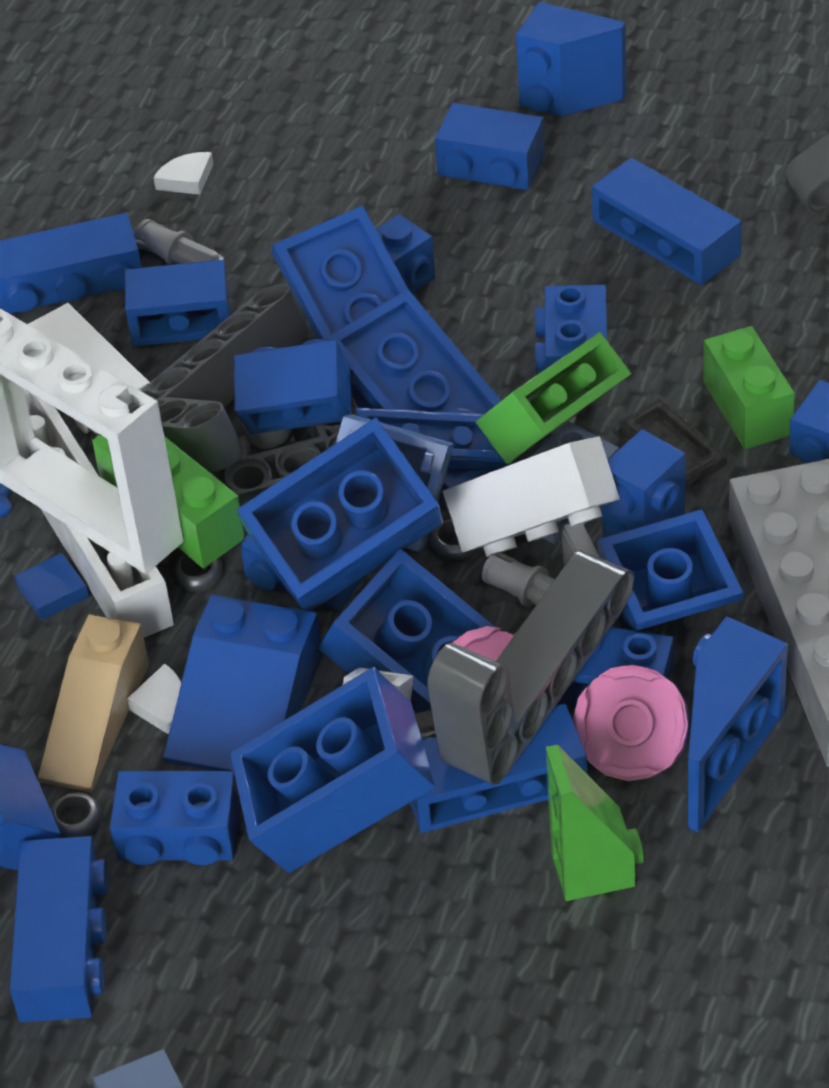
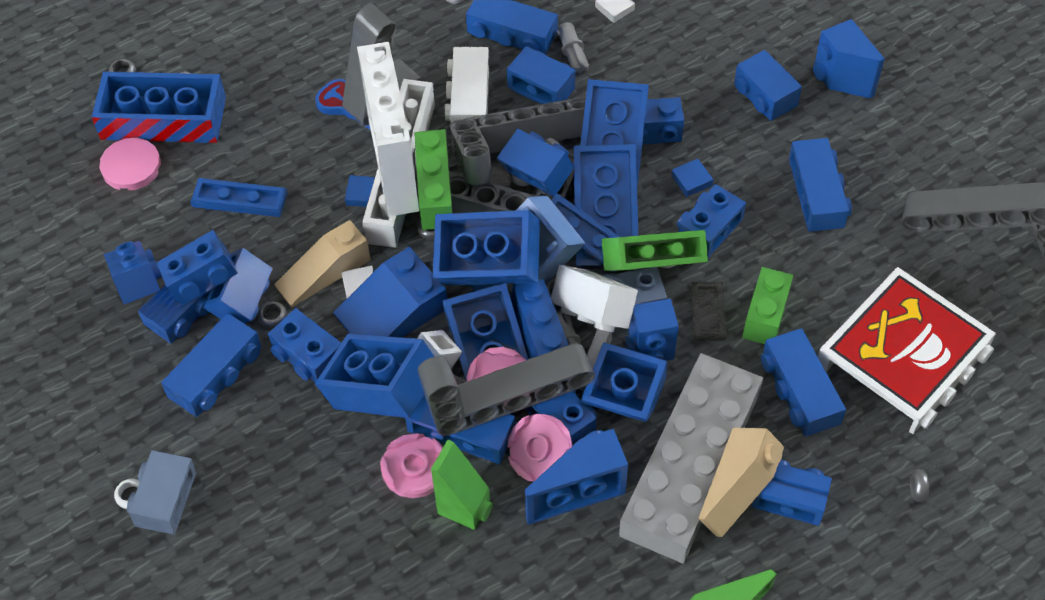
camera: 35 degrees right, 10 degrees up
(480, 880) = (413, 476): none -> bright pink tile
(484, 575) = (537, 319): none -> blue brick
(494, 308) = (692, 177): none -> blue tile

